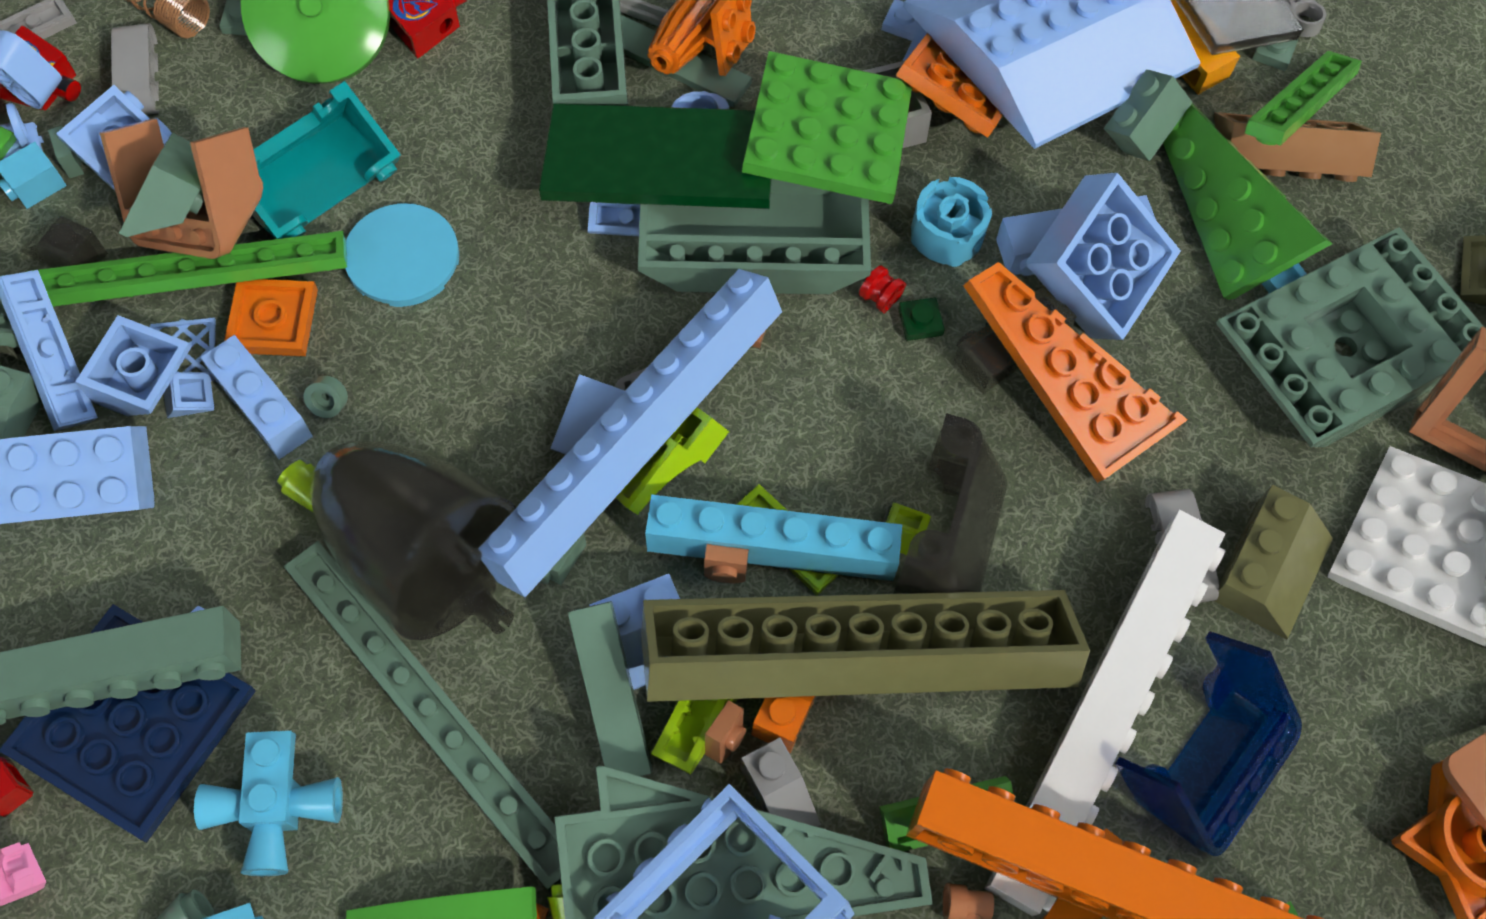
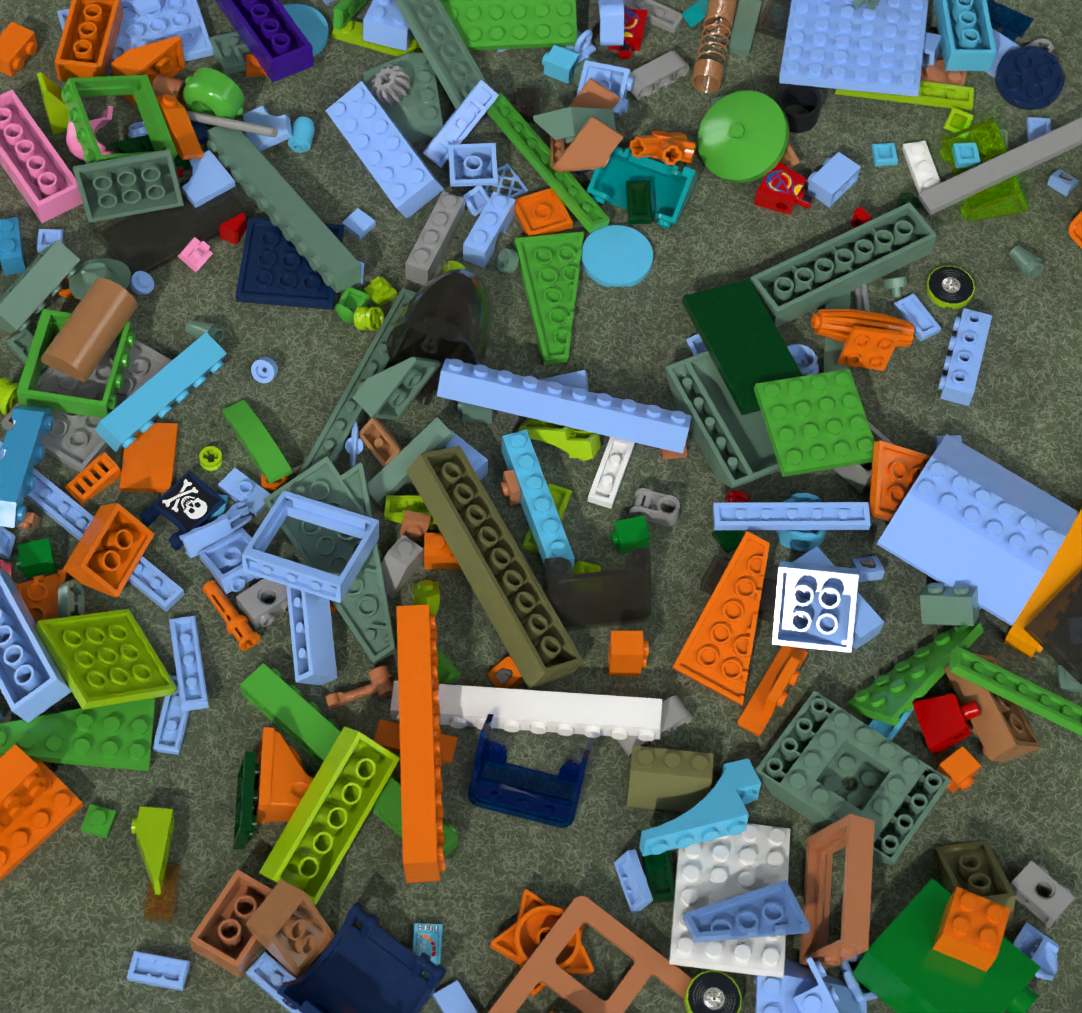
camera: 65 degrees right, 5 degrees down
(120, 581) = (358, 223): none -> light blue tile
(225, 479) = (435, 238): none -> light grey brick
(267, 604) = (380, 291): none -> lime tile
(268, 657) = (350, 302): none -> bright green plate
(268, 801) = (279, 338): medium azure brick -> none
(276, 102) = (664, 146): none -> orange piece
(310, 641) = (368, 318): none -> lime wheel
(310, 851) = (264, 370): none -> light blue tile
(333, 185) = (638, 202): none -> dark green plate
(409, 361) = (550, 282): none -> bright green wing
(476, 675) = (394, 389): none -> sand green slope
(527, 766) = (354, 445): none -> light blue piece
(547, 721) = (379, 441): none -> medium nougat brick
(757, 421) = (611, 472): none -> white plate
(835, 392) = (654, 507): none -> light grey piece
(849, 770) = (426, 593): none -> lime plate
(871, 438) = (630, 534): none -> green brick
(957, 224) = (791, 516): none -> light blue plate
(1025, 712) = (505, 674): none -> orange slope
(1038, 184) = (869, 567): none -> light blue slope
(1072, 527) = (627, 653): none -> orange brick
(1182, 371) = (772, 689): none -> orange bracket
(1312, 190) = (945, 721): none -> red torso
(1366, 523) = (713, 817): none -> medium azure arch
(1367, 216) = (960, 769): none -> orange brick
(1411, 642) = (659, 876): none -> dark green plate
(1417, 680) = (633, 881): none -> light blue plate

